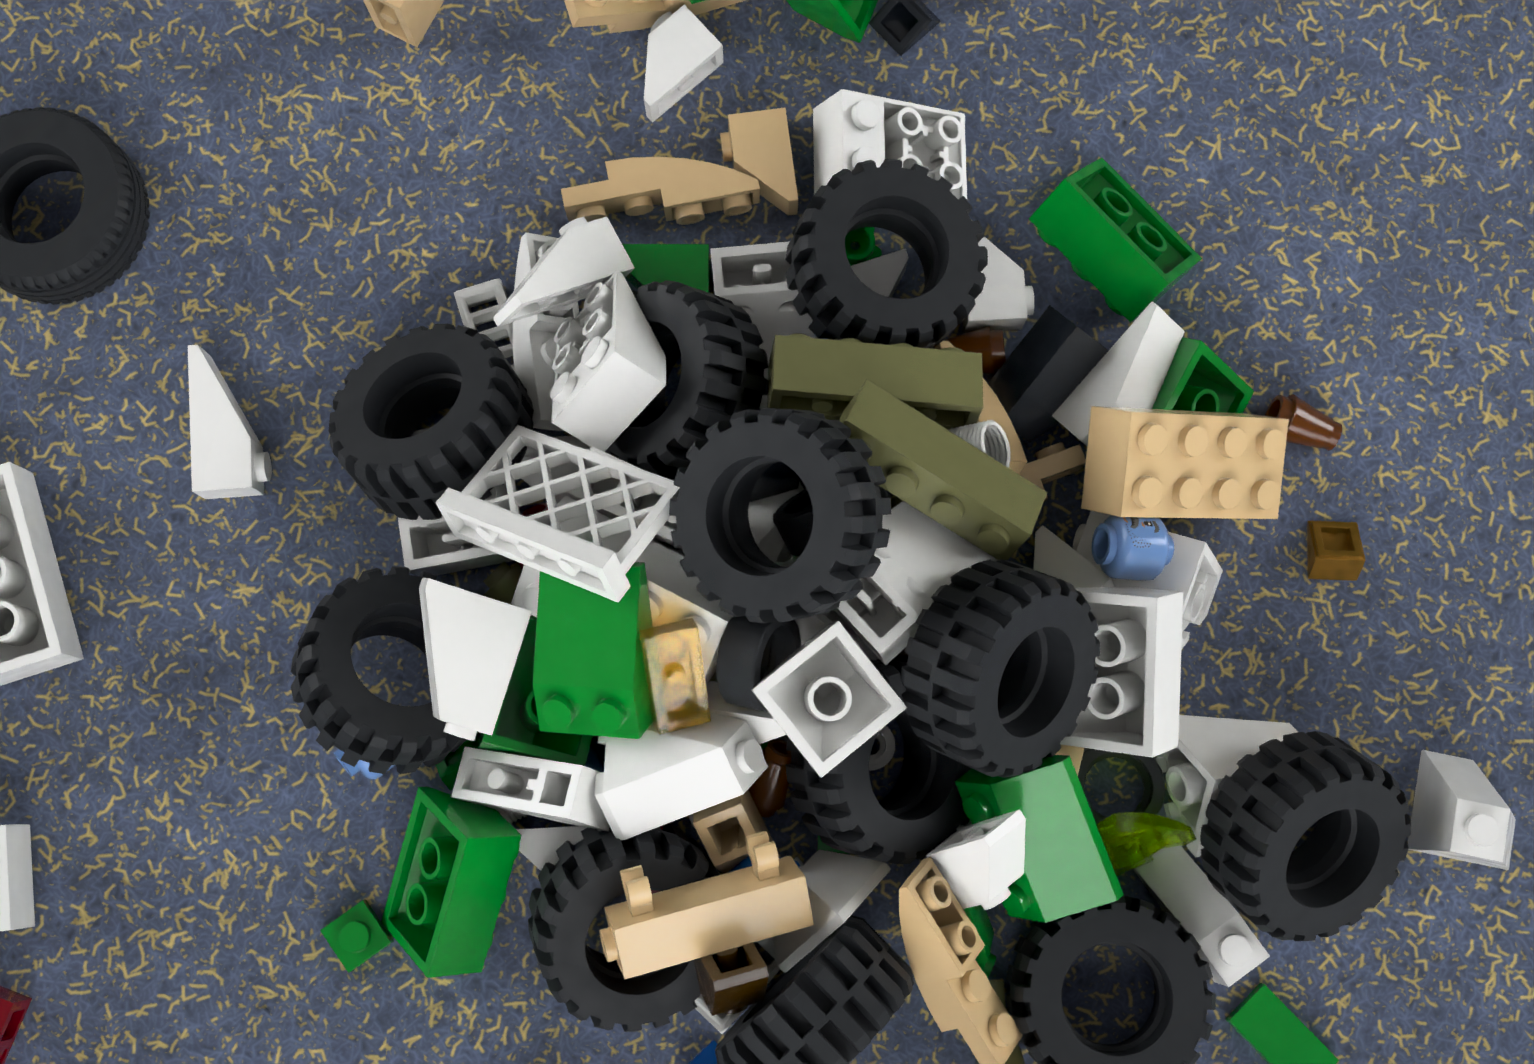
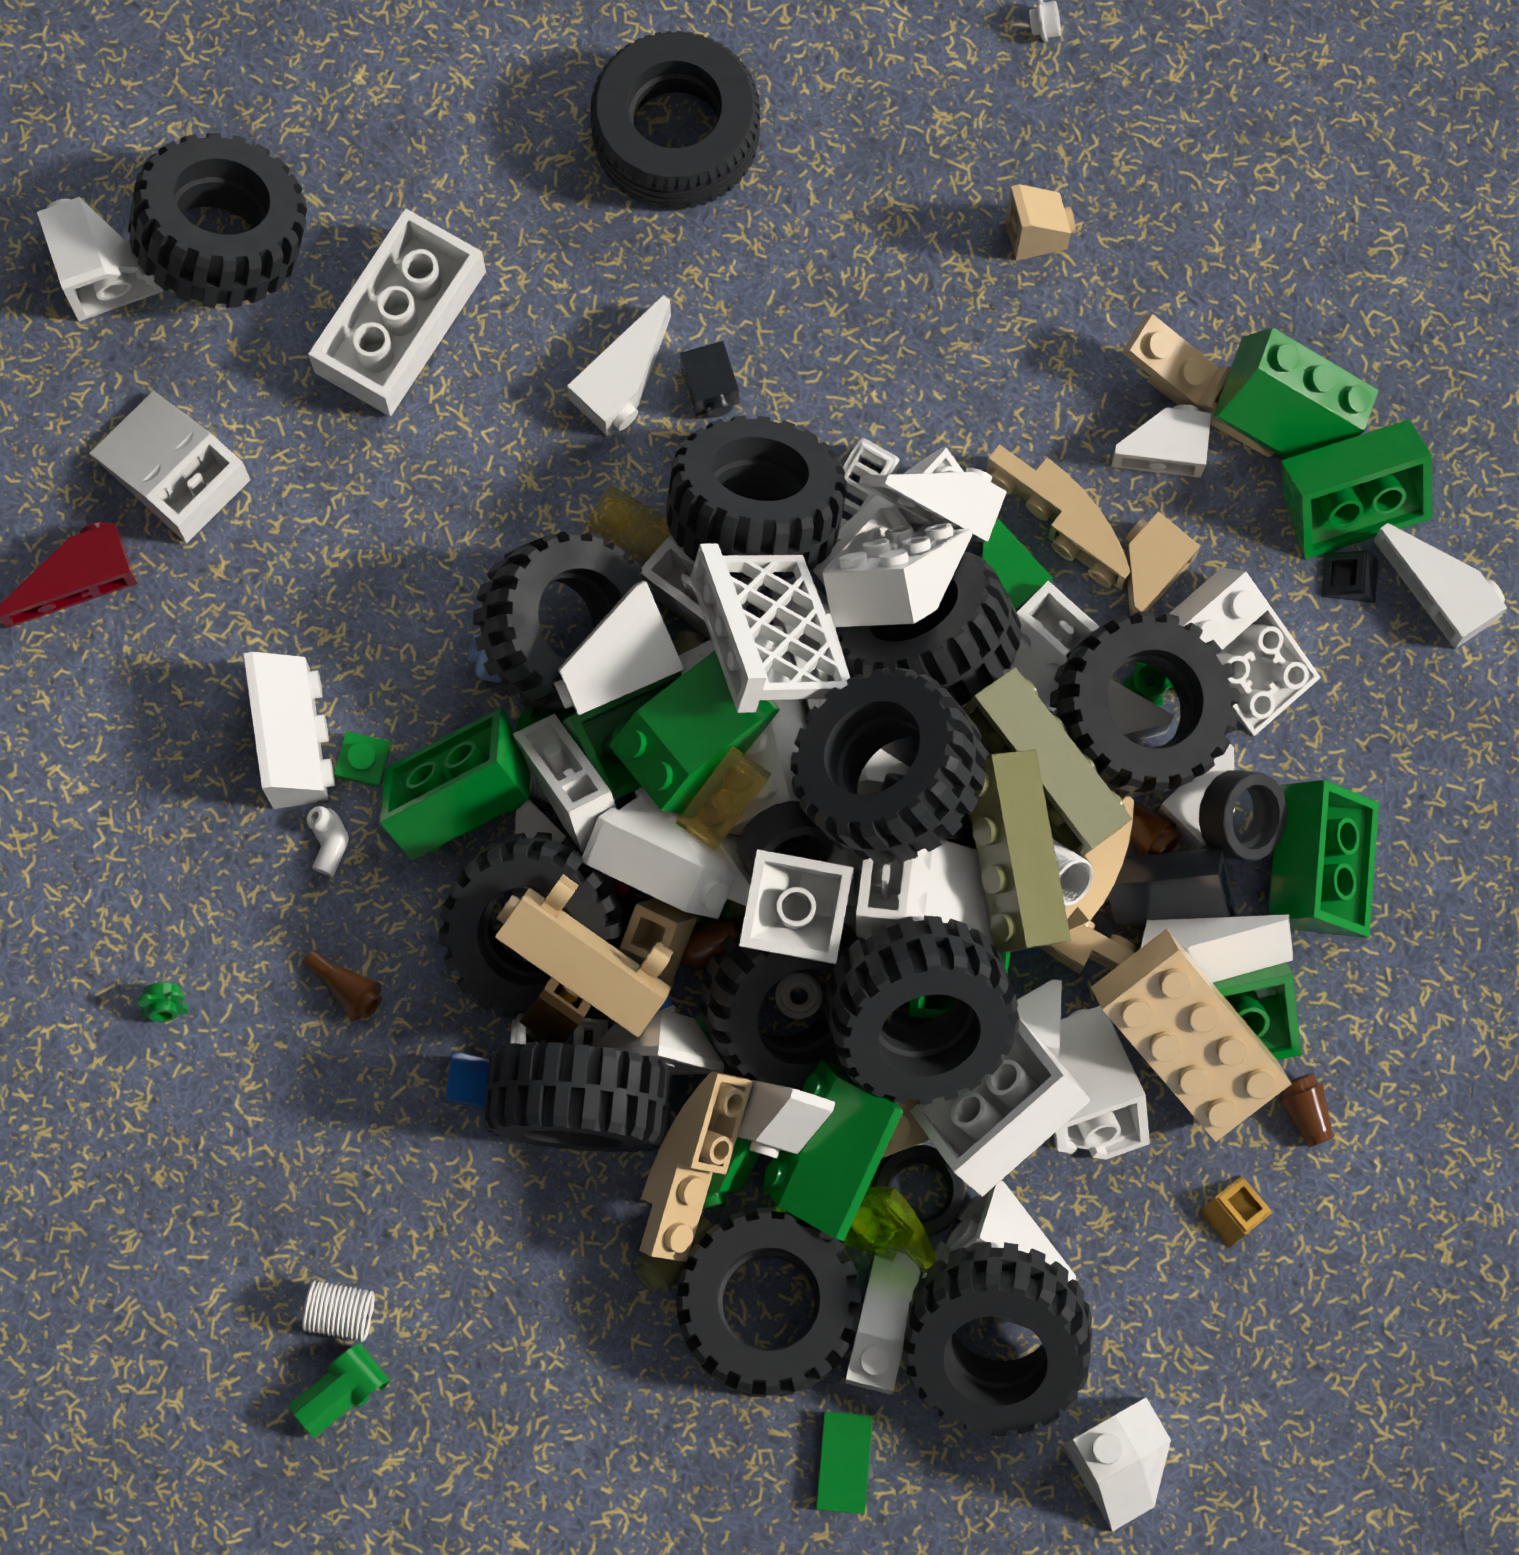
camera: 50 degrees right, 5 degrees down
(273, 983) = (288, 729): none -> white slope
(294, 370) = (710, 379): none -> black brick
(355, 540) = (629, 523): none -> clear yellow plate
(399, 1019) = (331, 836): none -> white arm
(1015, 274) = (1268, 814): none -> black tyre
(1132, 547) = (1093, 1043): medium blue head -> none

